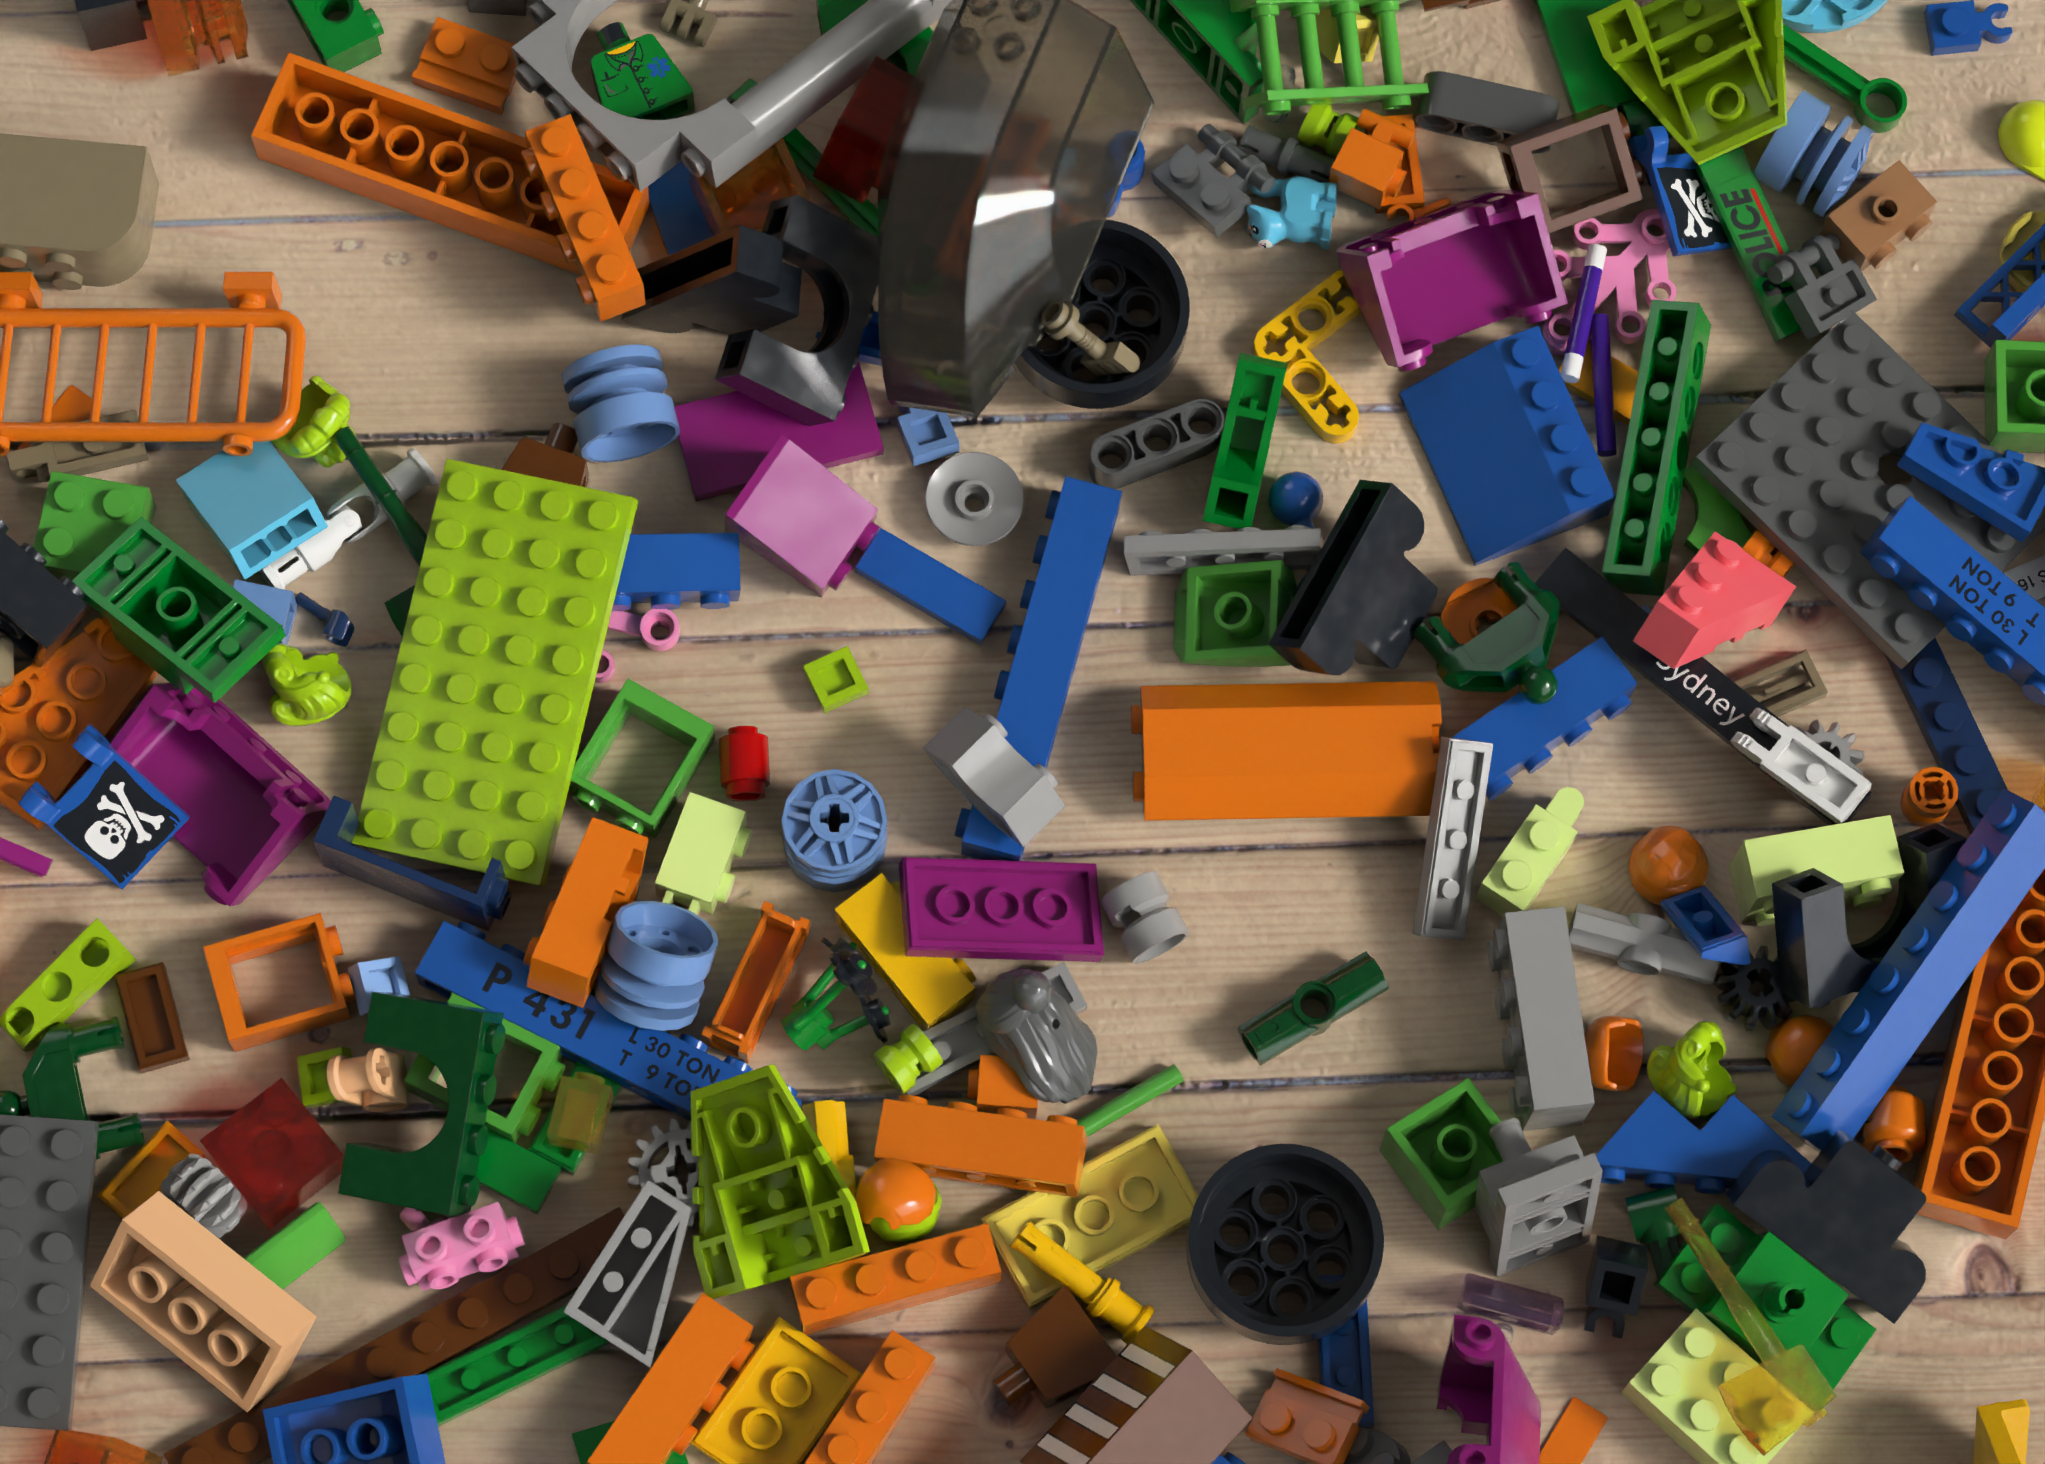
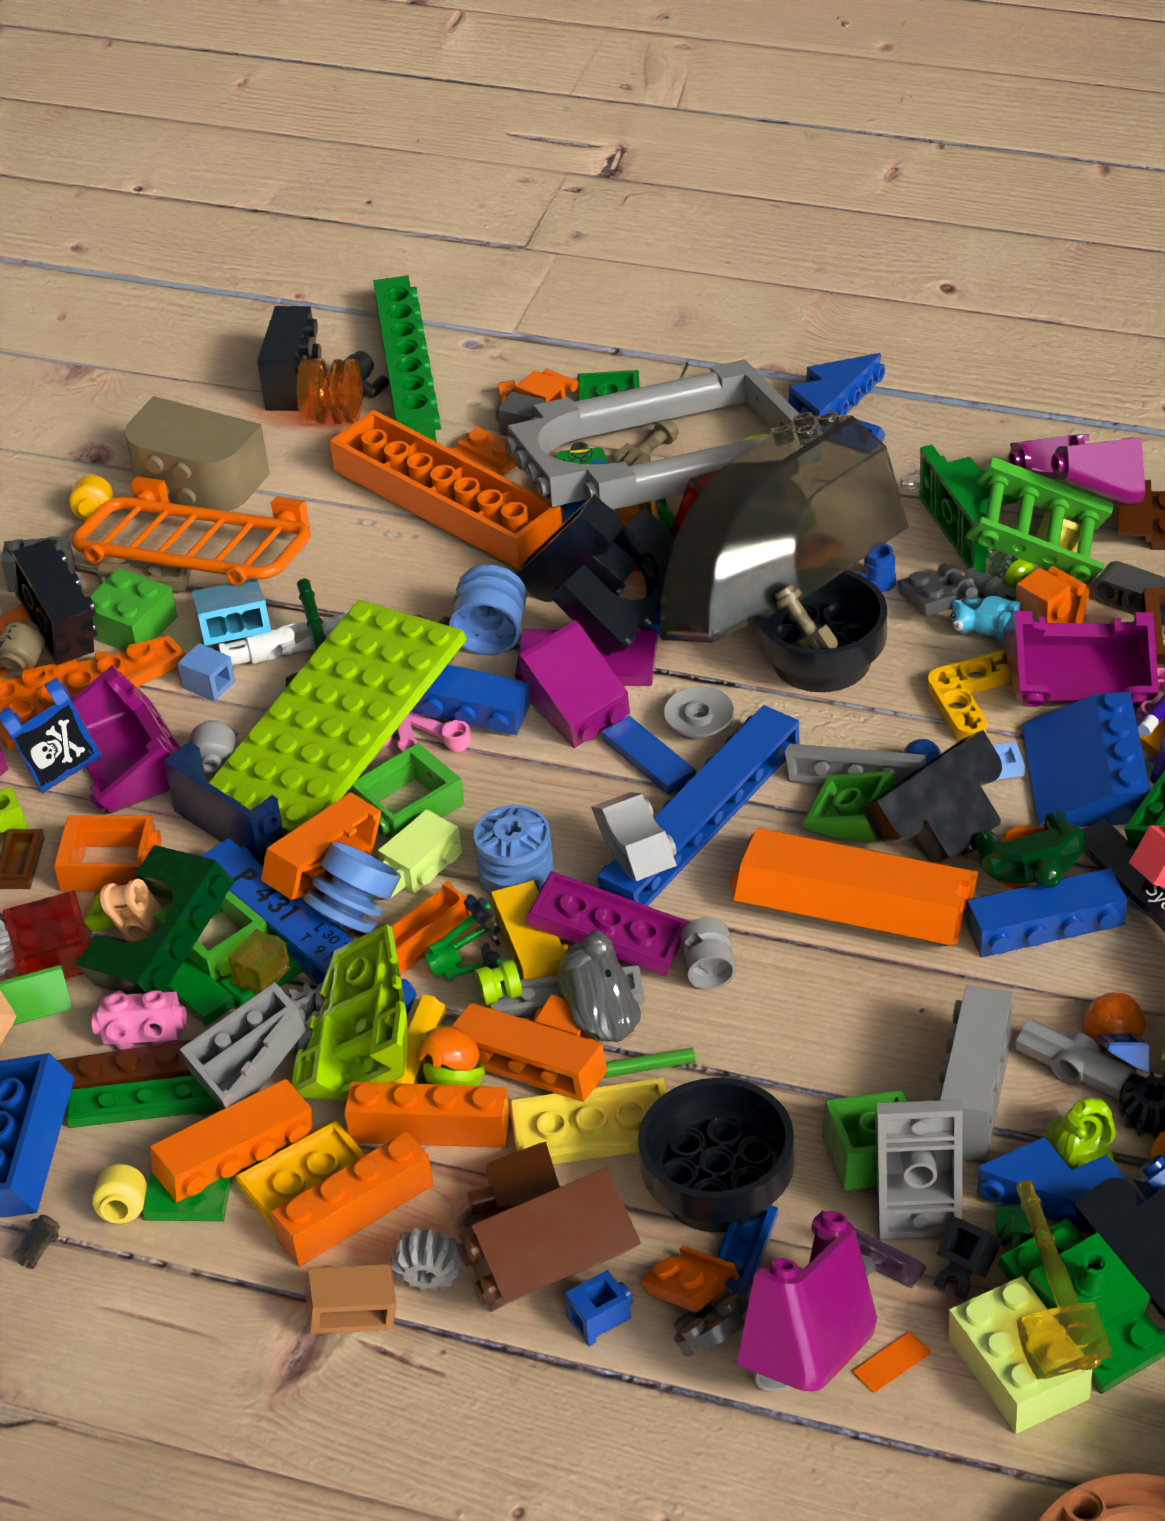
camera: 30 degrees right, 30 degrees down
(177, 612) = (148, 639): green brick -> none
(305, 688) = (211, 704): lime hair -> none
(320, 417) = (283, 587): lime hair -> none
(335, 753) = (215, 743): none -> light grey head
(338, 625) = (249, 691): dark blue hand -> none
(585, 218) = (506, 504): orange brick -> none
(744, 764) = (471, 808): red brick -> none
(835, 679) = (559, 784): lime plate -> none
(927, 434) = (684, 671): medium blue plate -> none
(1101, 1296) = (571, 1161): yellow pin -> none
(1168, 425) = (839, 709): dark grey beam -> none
(1245, 441) = (902, 715): green arch -> none
(1338, 991) = (808, 1035): dark green piece -> none
(1402, 467) = (1011, 760): none -> light blue plate
(1452, 838) = (951, 954): light grey tile -> none
(1532, 854) = (1021, 973): yellowish green brick -> none
(1614, 1052) = (1023, 1112): orange hair -> none

